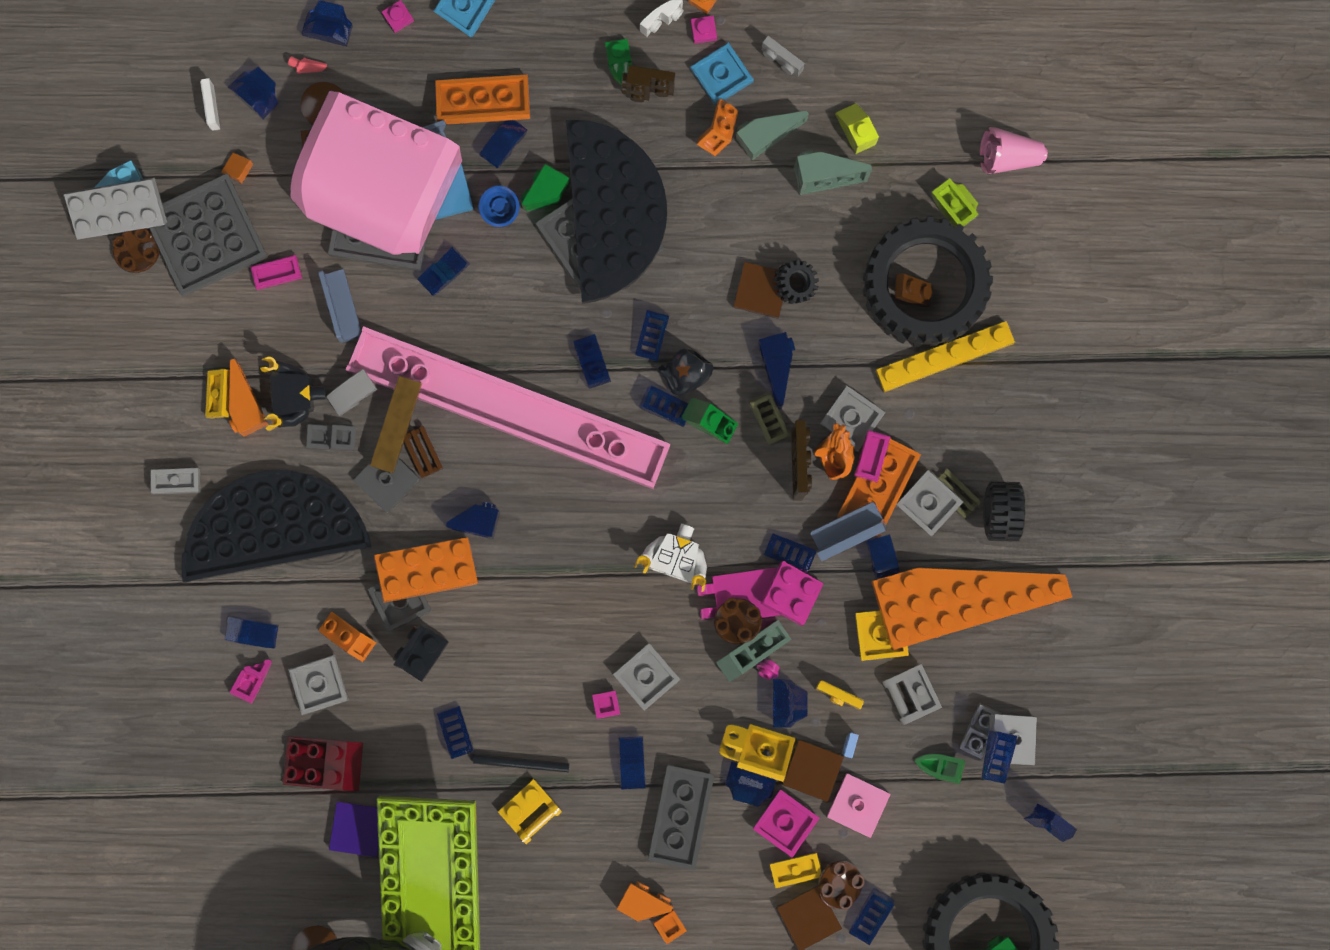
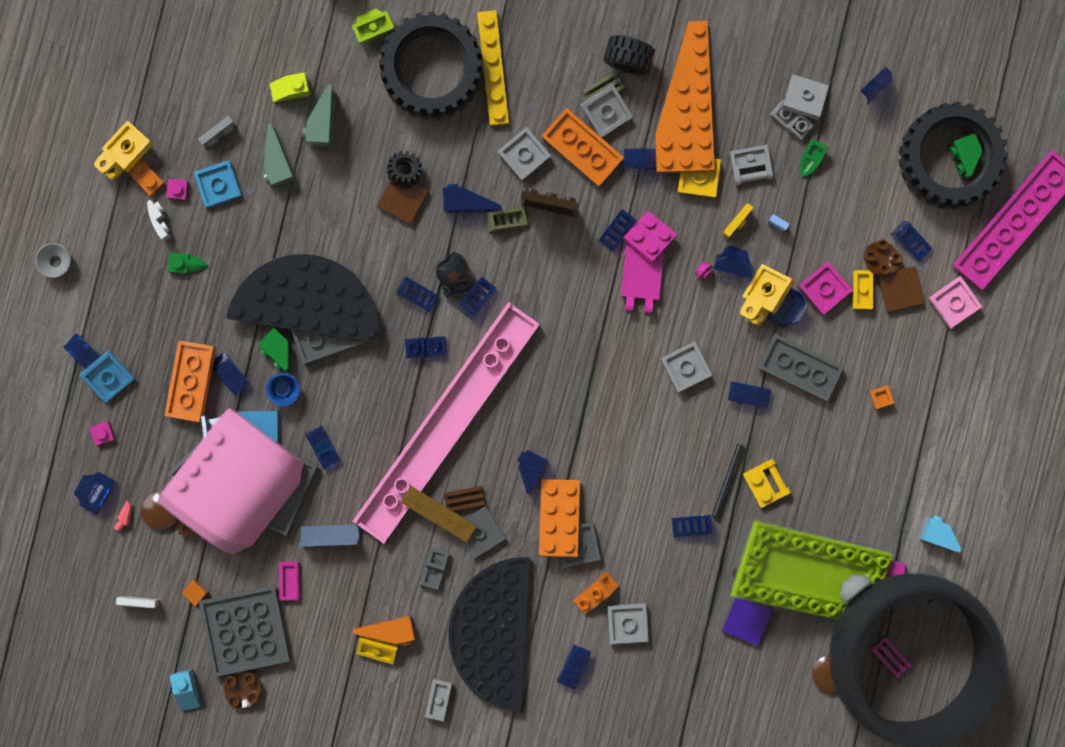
camera: 70 degrees left, 5 degrees up
(115, 208) = (205, 697): light grey plate -> none
(250, 681) = (611, 676): dark pink slope -> none
(256, 91) = (135, 562): clear blue slope -> none
(291, 394) = (392, 591): black torso -> none
(323, 763) = (690, 634): dark red slope -> none
(351, 392) = (403, 543): light grey slope -> none
(420, 652) = (624, 537): black bracket -> none
(606, 704) = (699, 403): dark pink plate -> none
(641, 904) = (859, 414): orange slope -> none
(642, 81) = (210, 251): dark brown plate -> none
(676, 557) = (599, 319): white torso -> none
(709, 420) = (497, 266): green slope -> none
(721, 130) = (265, 195): orange bracket -> none
(737, 621) = (661, 284): reddish brown dish -> none
(753, 652) = (687, 278): sand green slope -> none
(813, 770) = (790, 256): reddish brown tile -> none
(836, 453) = (549, 173): orange hair -> none
(848, 530) = (613, 180): sand blue panel -> none
(858, 805) = (825, 229): bright pink plate -> none
(872, 456) = (558, 146): dark pink tile -> none
(913, 290) = (435, 78): reddish brown plate -> none
(1008, 751) = (814, 102): clear blue slope -> none

